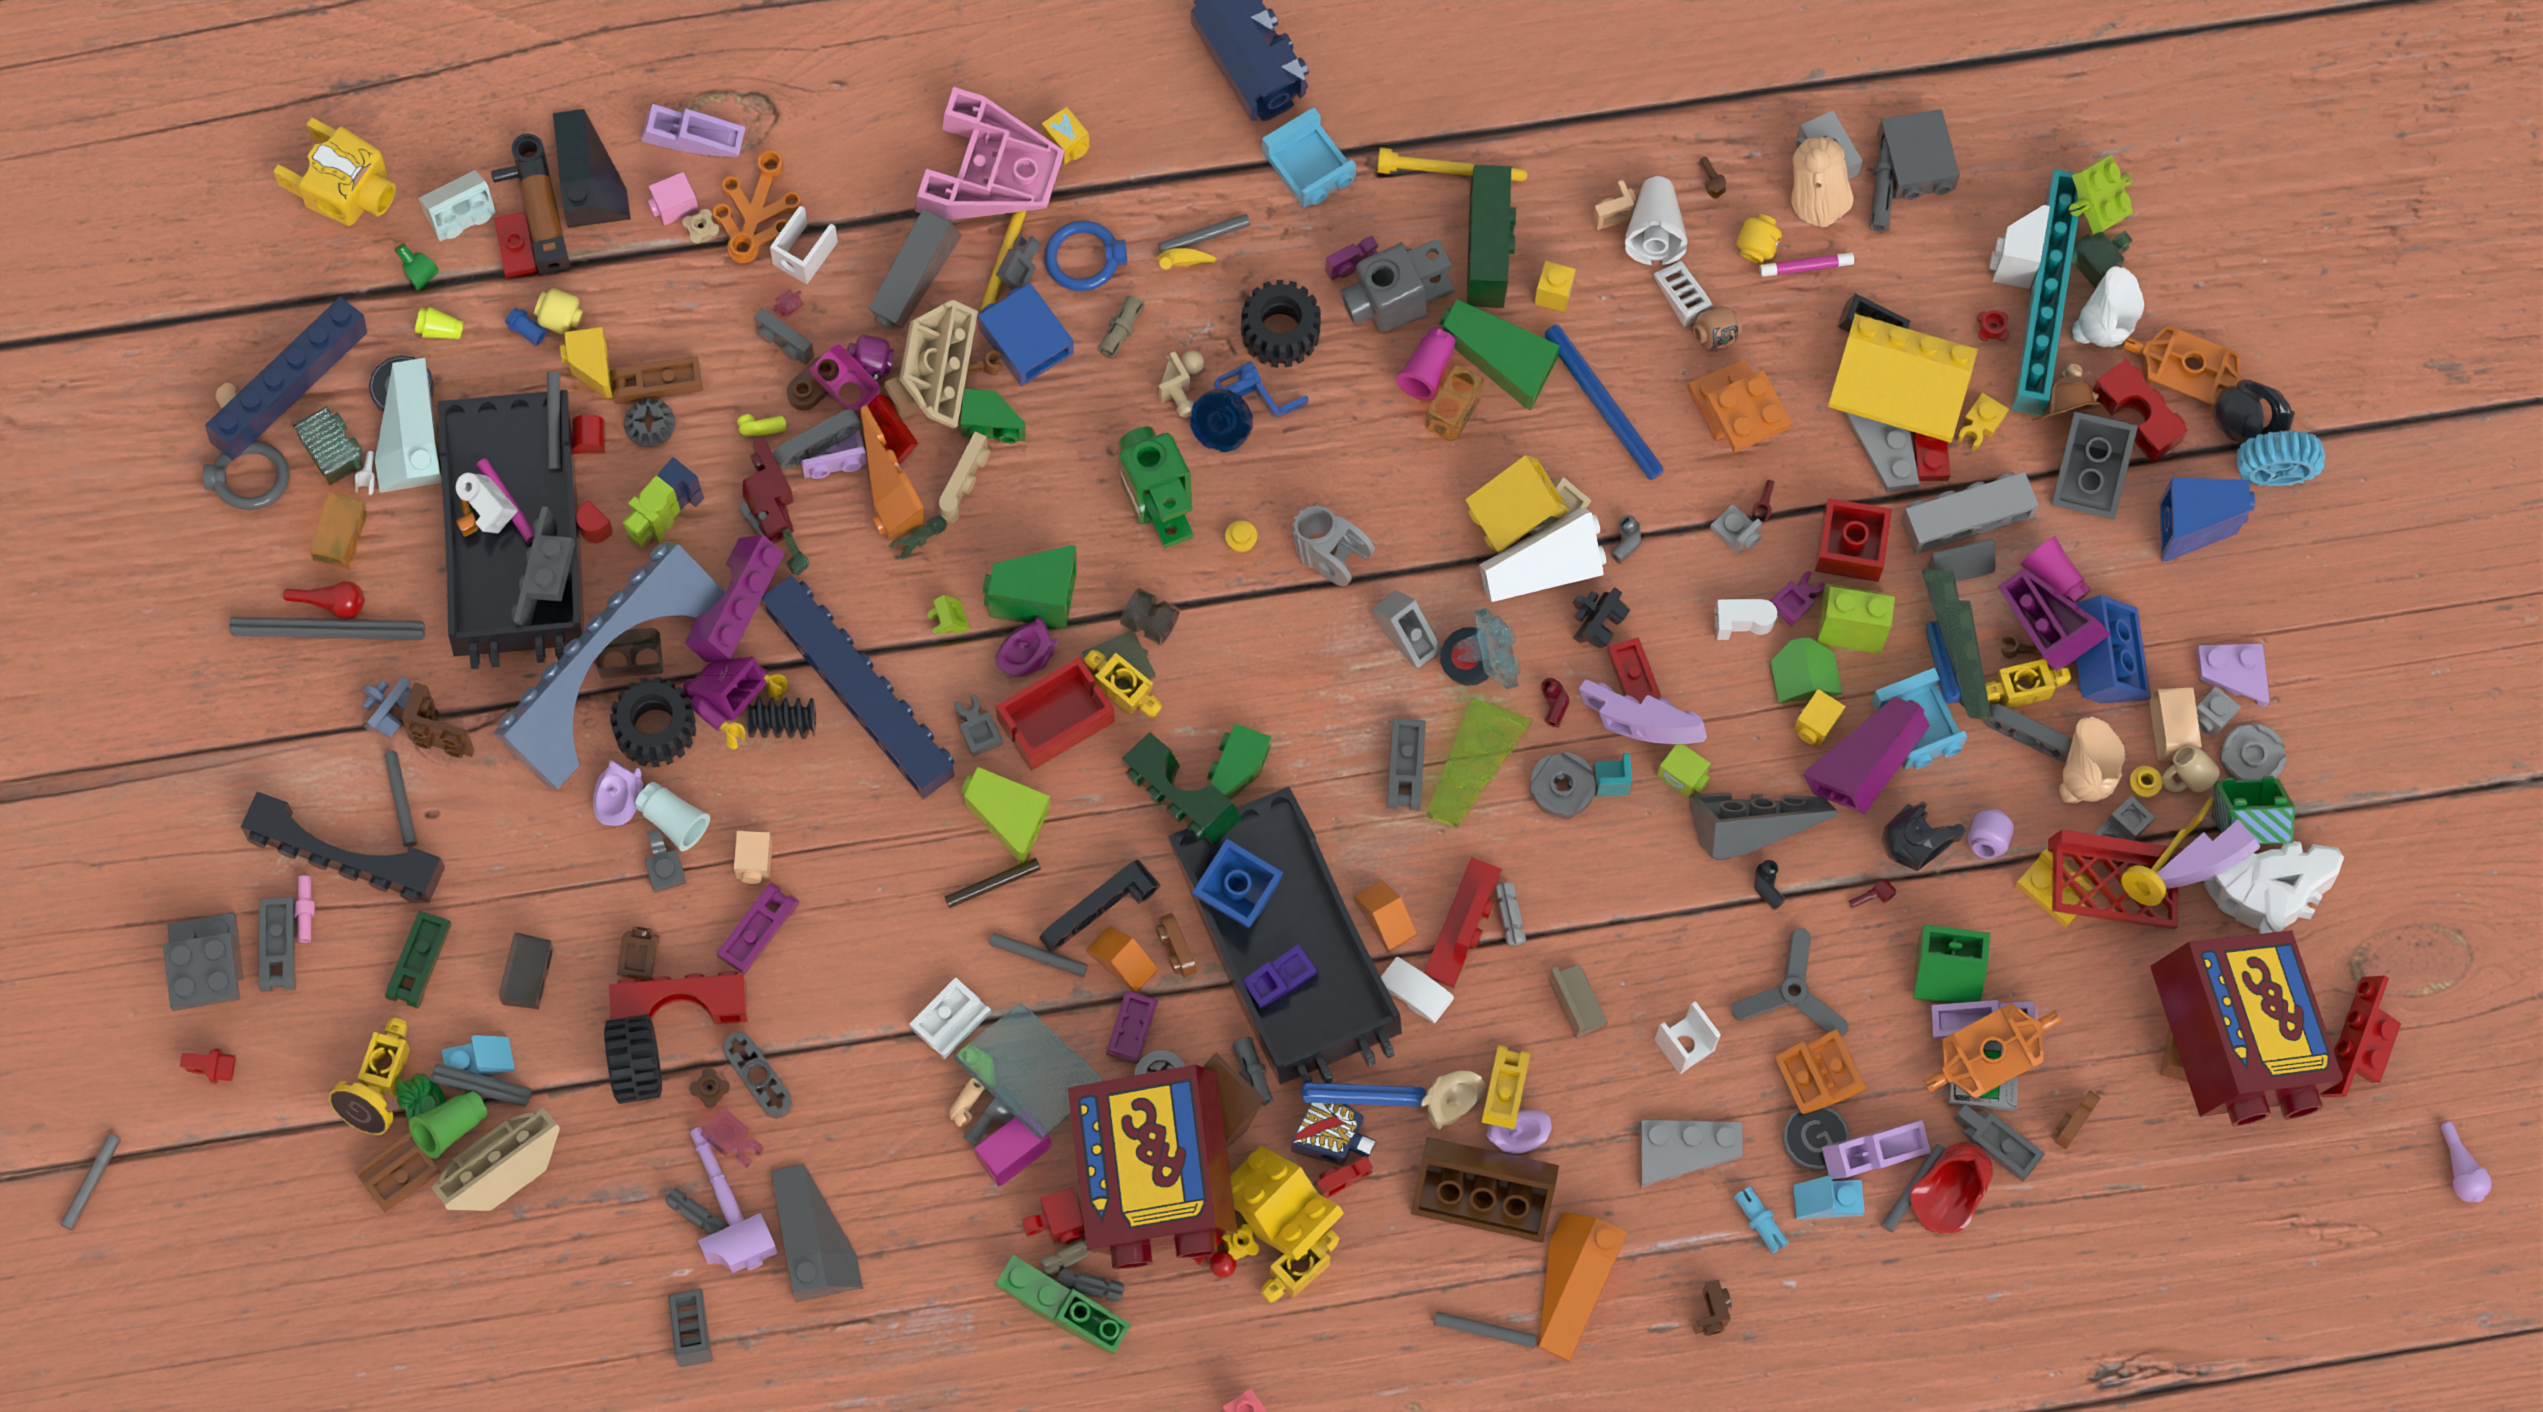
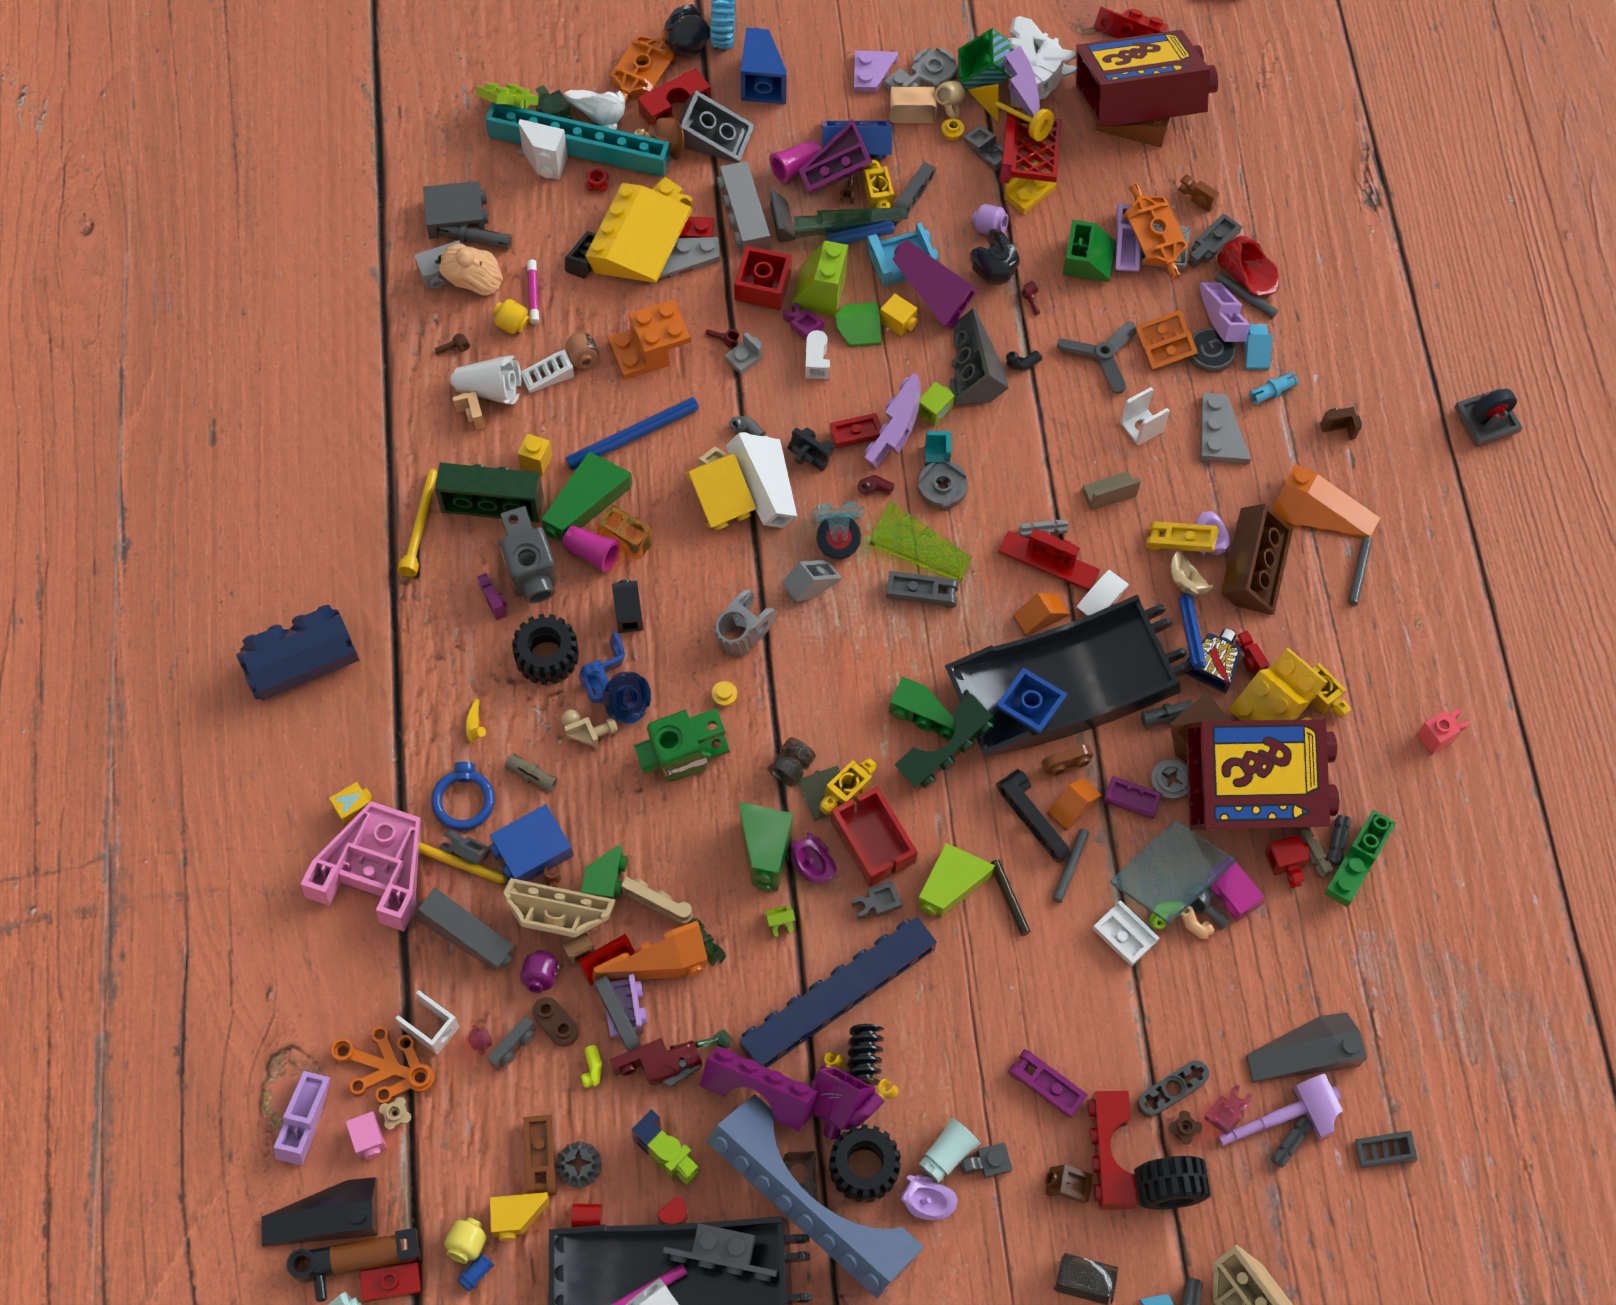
camera: 85 degrees left, 5 degrees down
(553, 420) = (577, 1242): dark grey bar -> none
(753, 856) = (987, 1084): light nougat brick -> none
(845, 363) = (578, 977): dark pink piece -> none
(1205, 233) = (454, 706): dark grey bar -> none
(1280, 976) = (1092, 687): dark purple slope -> none
(1307, 159) = (400, 622): medium azure panel -> none
(1344, 410) = (627, 606): none -> black slope
(2092, 762) = (945, 154): light nougat hair -> none

